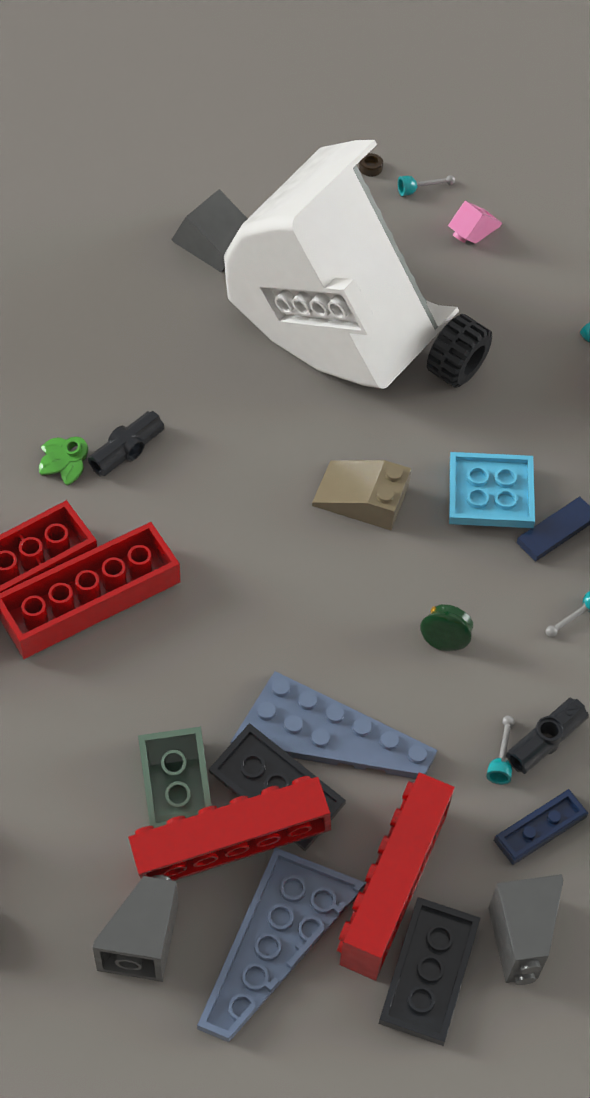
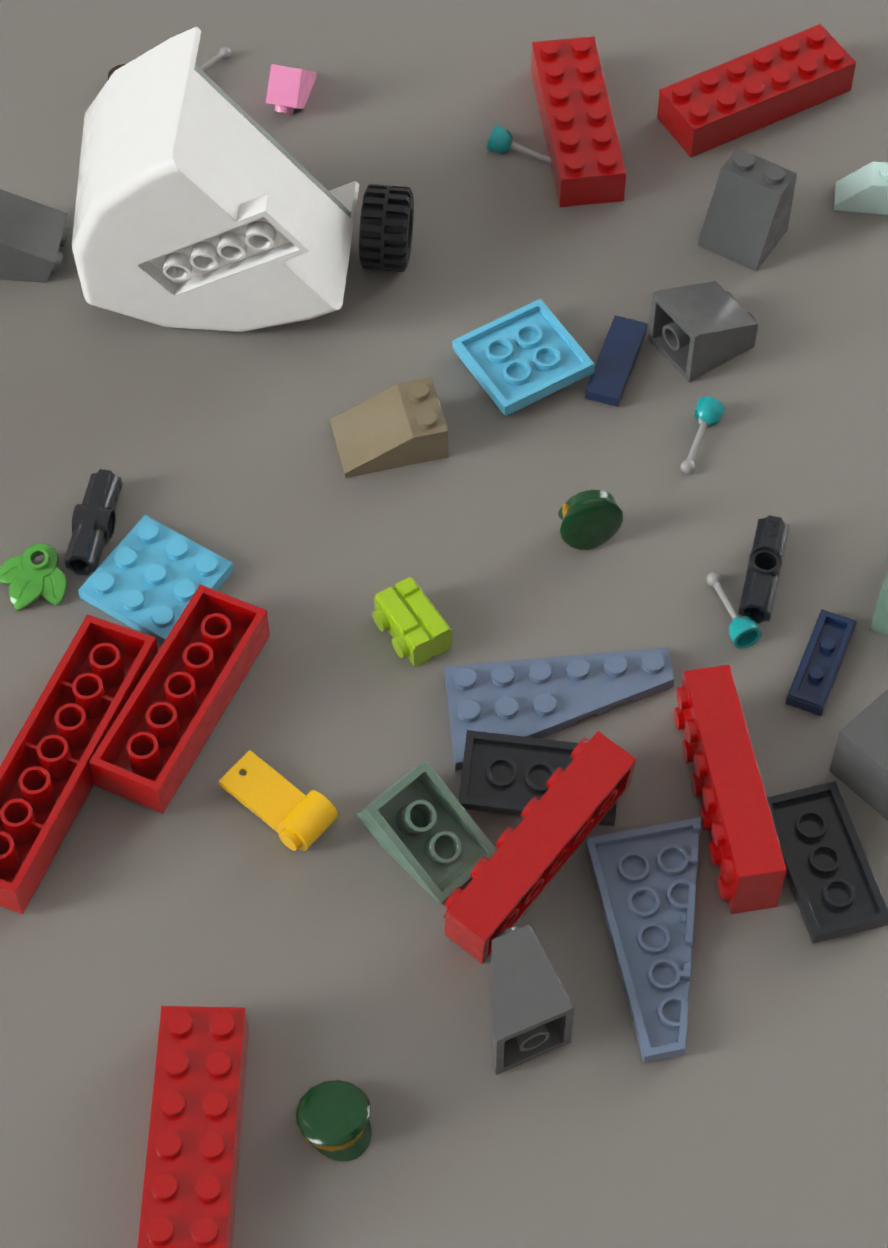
camera: 30 degrees left, 0 degrees up
(98, 696) = (278, 803): none -> yellow door
(136, 498) = (153, 578): none -> medium azure plate
(276, 628) = (412, 622): none -> lime brick

